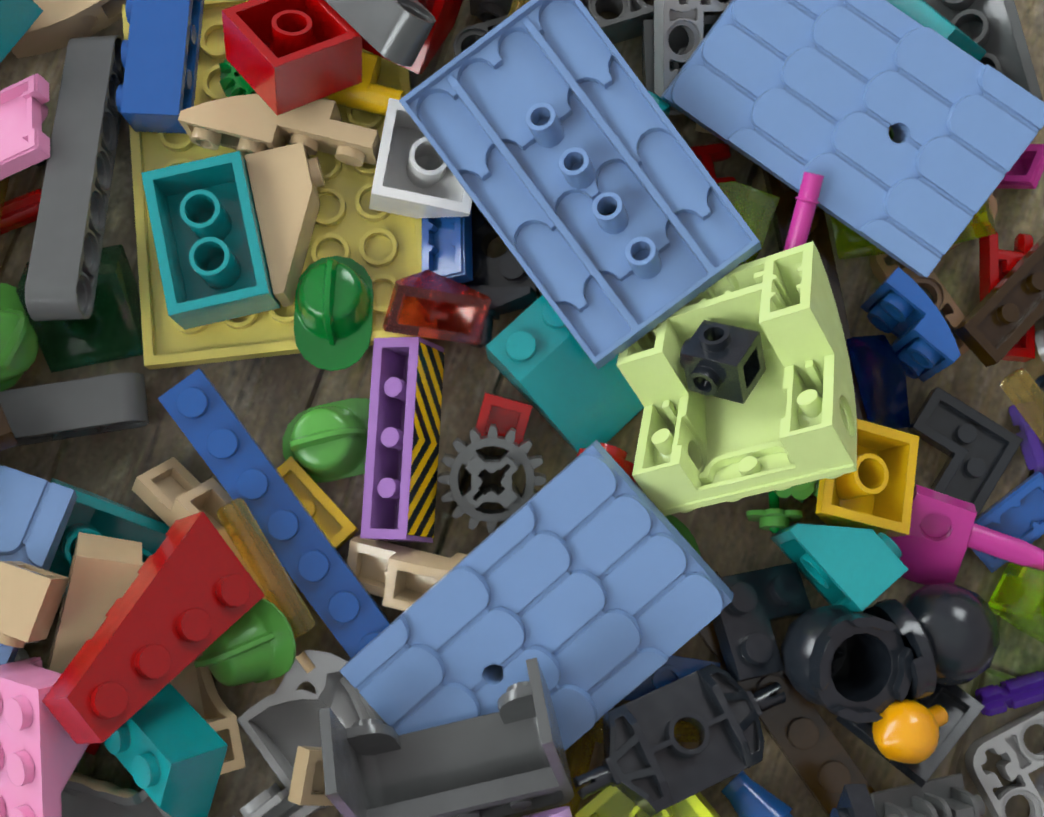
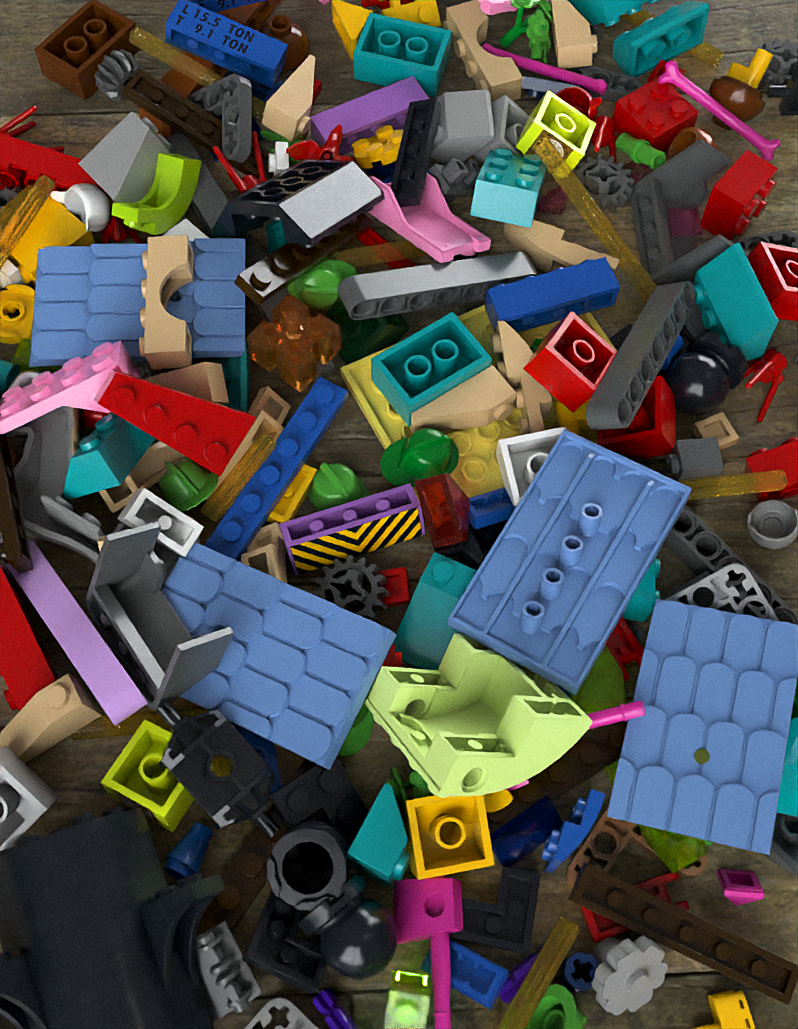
camera: 65 degrees right, 15 degrees down
(85, 413) = (294, 342): none -> clear orange brick
(292, 708) = (177, 529): none -> white slope
(723, 361) = (483, 697): black brick -> none
(909, 731) = (277, 925): light orange piece -> none

